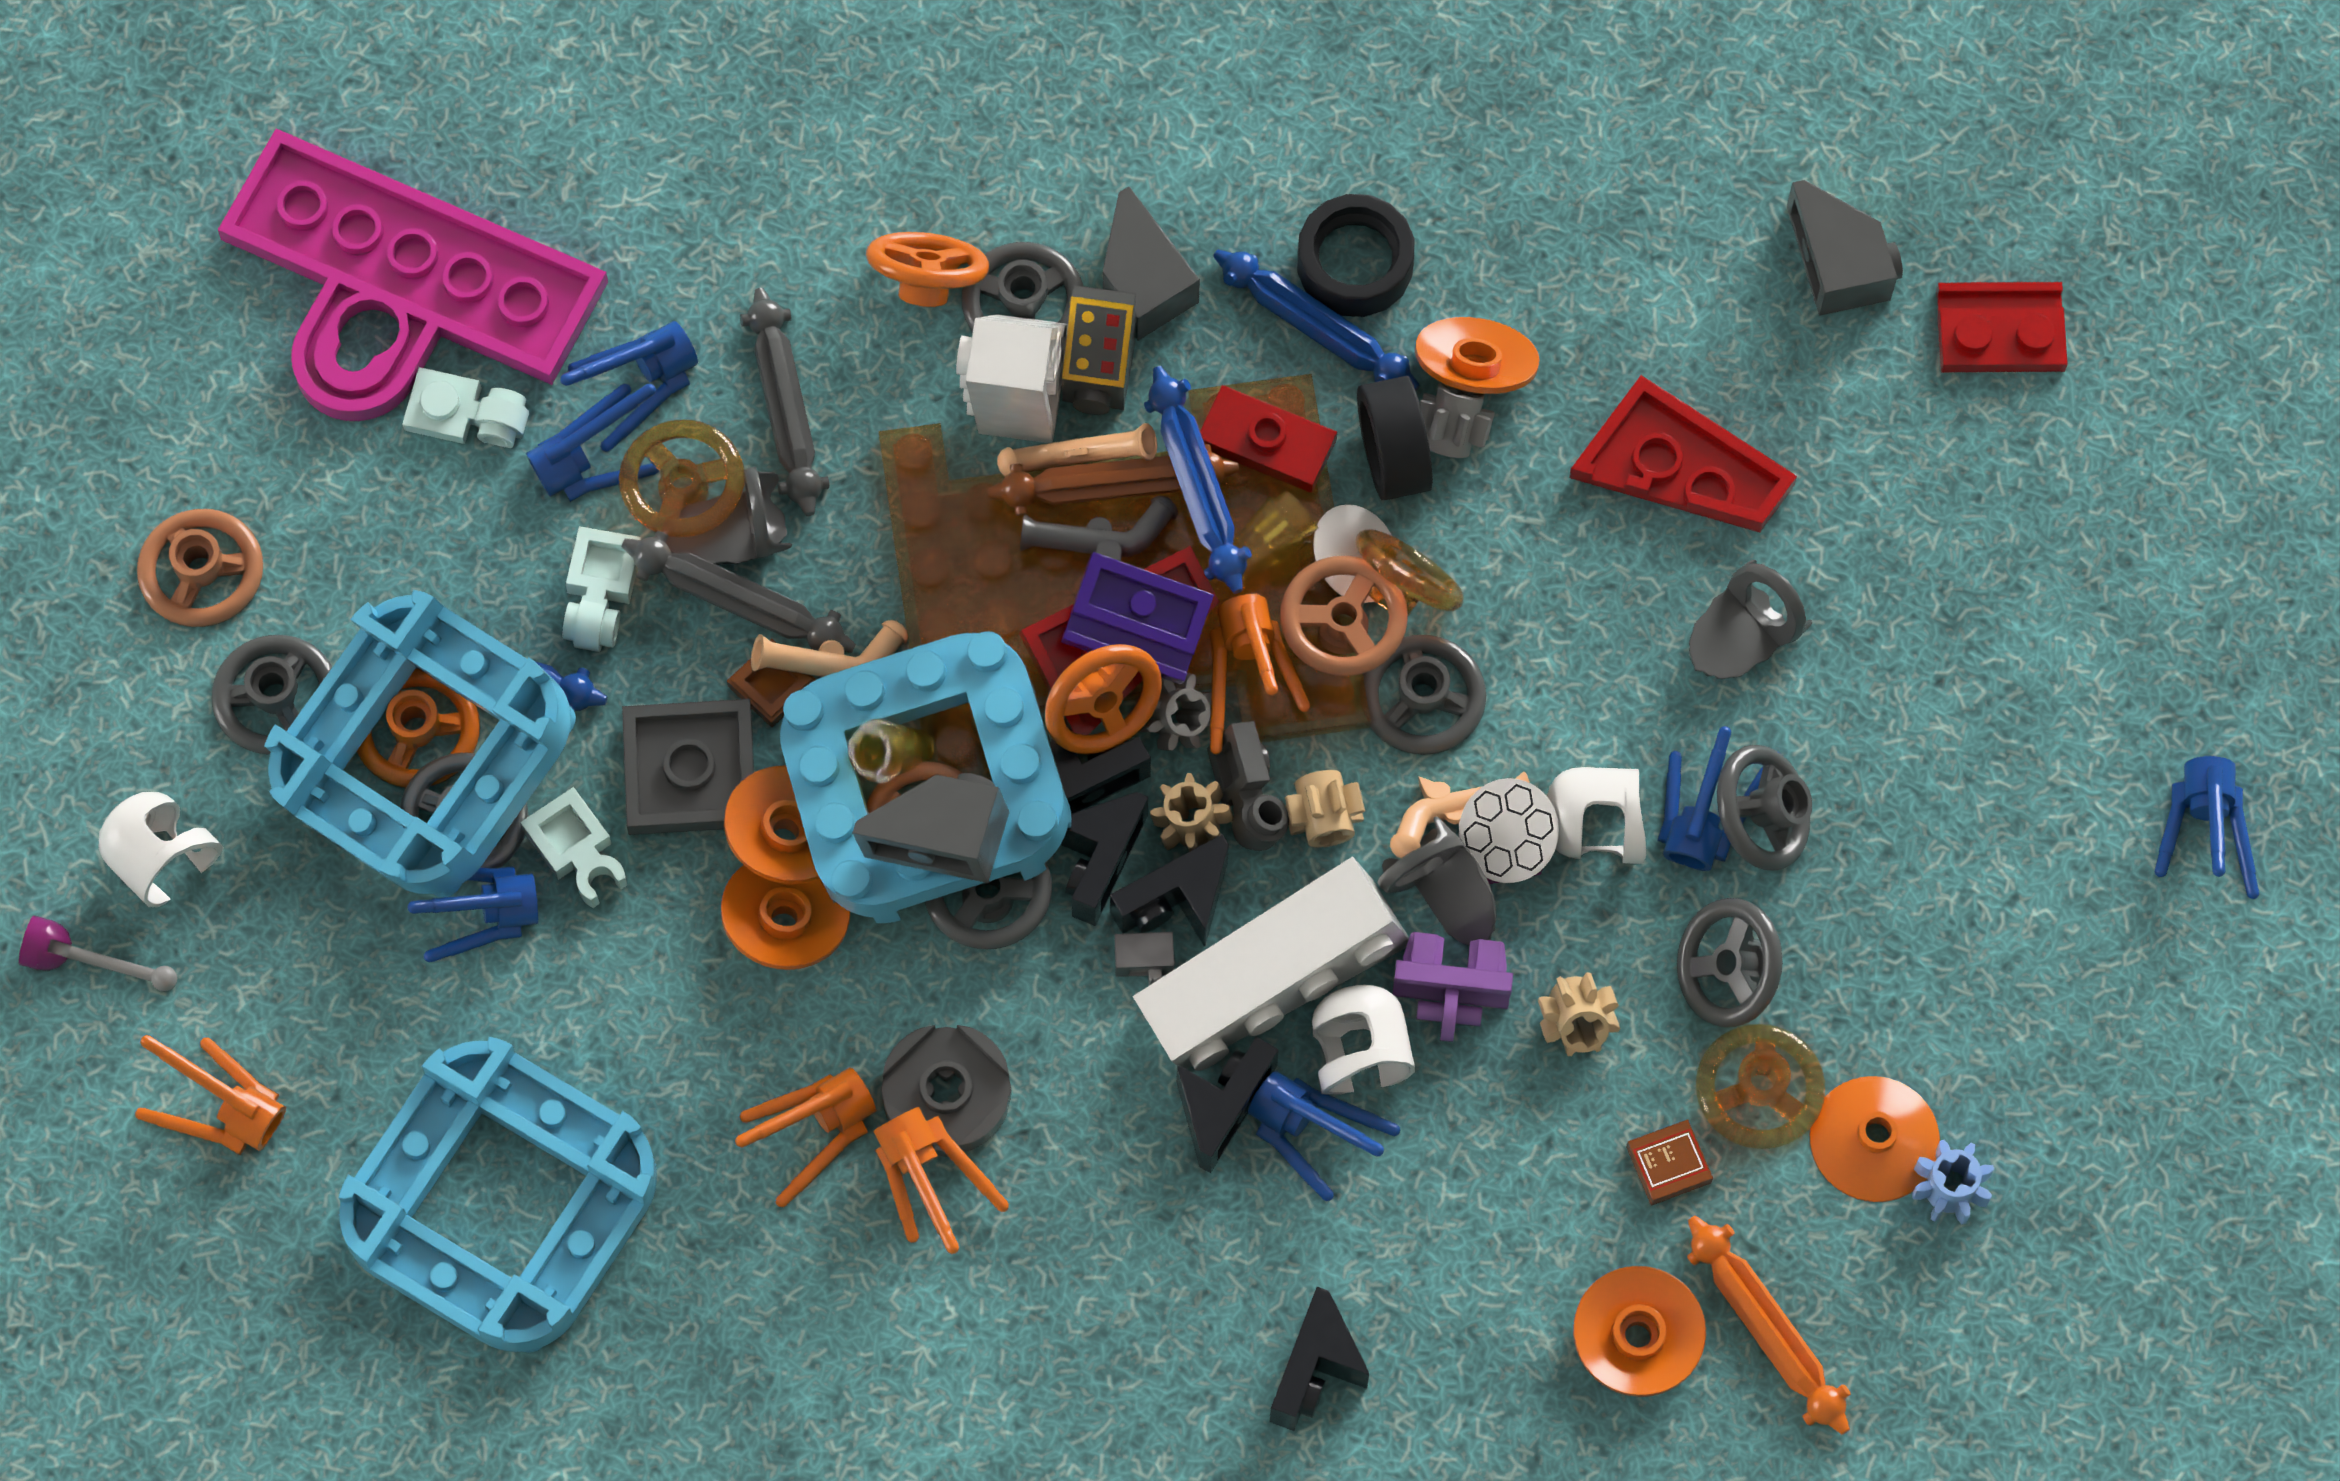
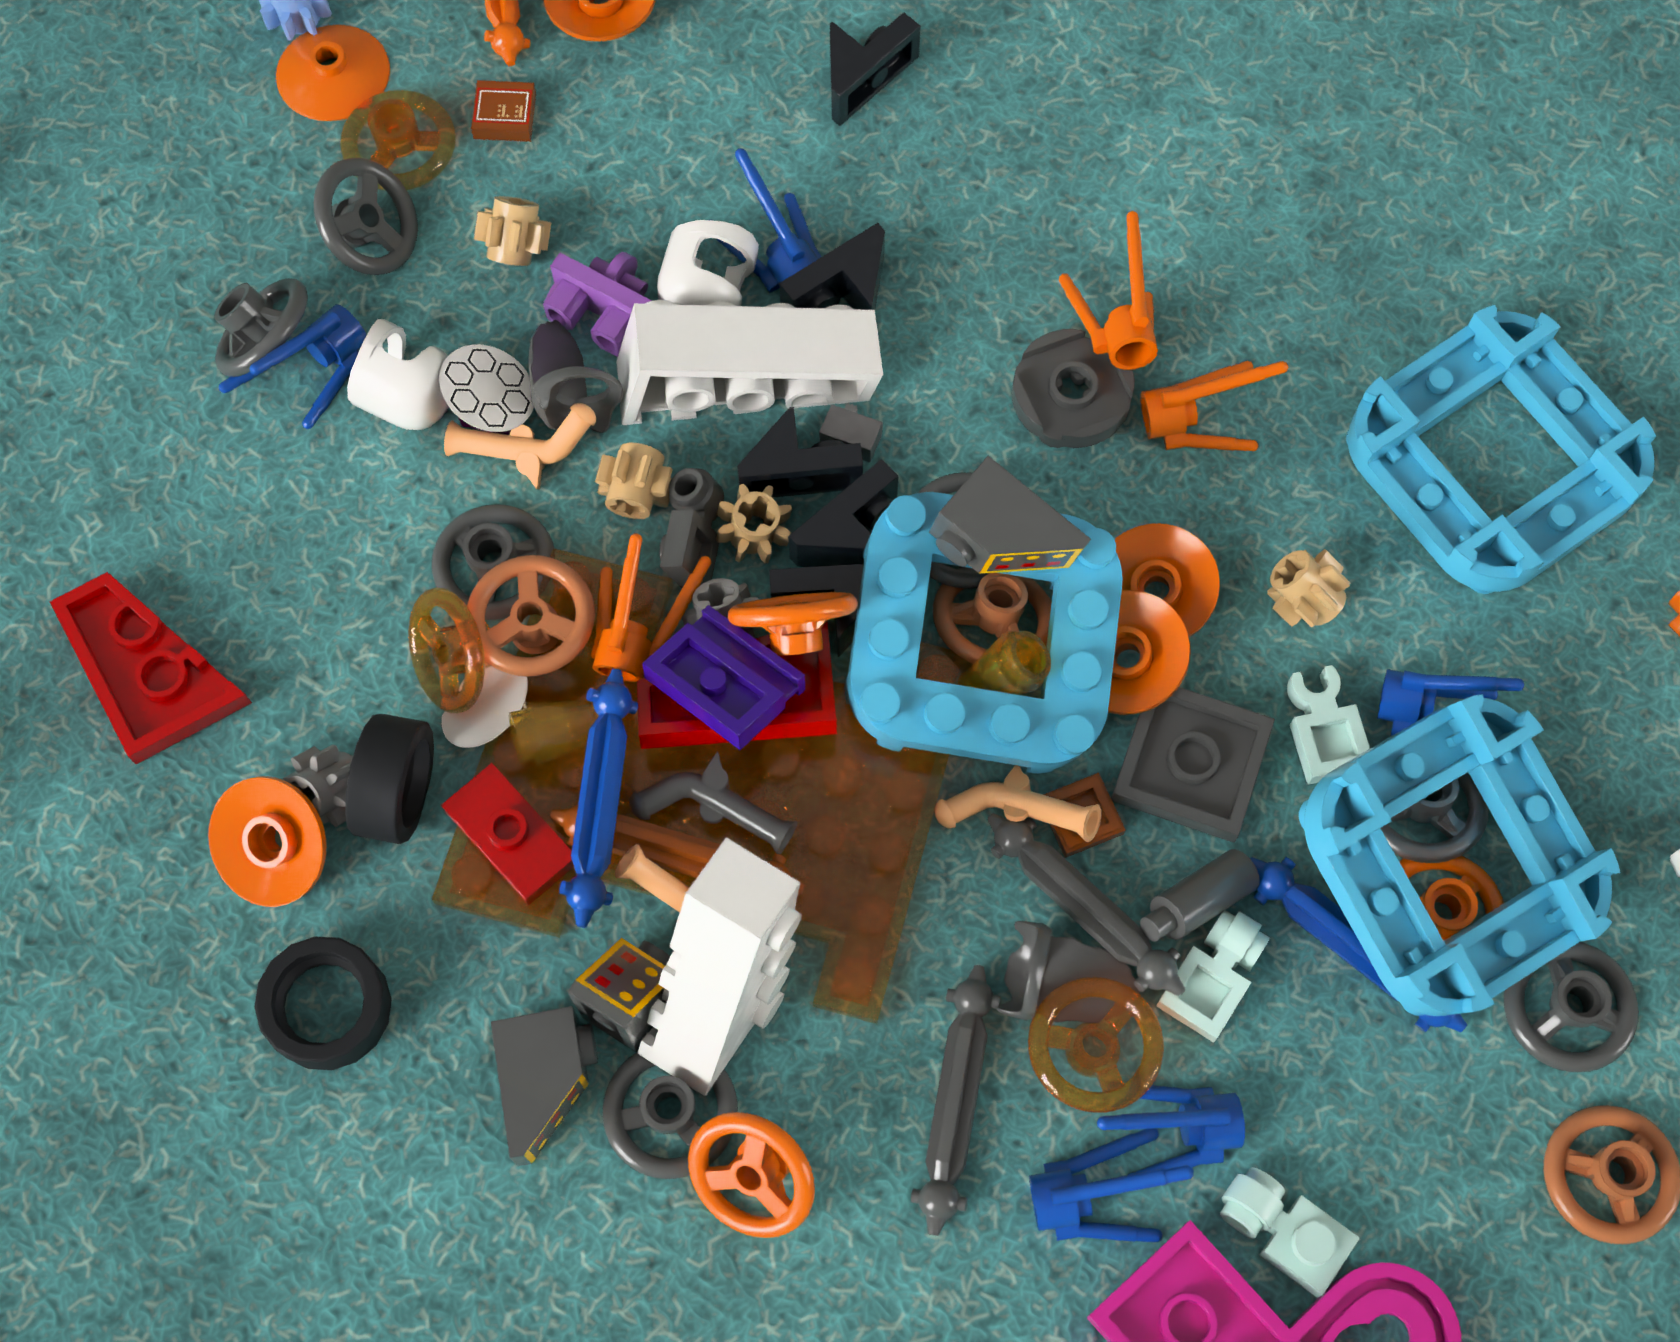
camera: 155 degrees left, 0 degrees up
(637, 636) = (1200, 896): none -> dark grey cylinder
(639, 966) = (1308, 588): none -> tan gear
(1312, 317) = (399, 958): blue wheel -> none
(1743, 627) = (181, 495): dark grey piece -> none

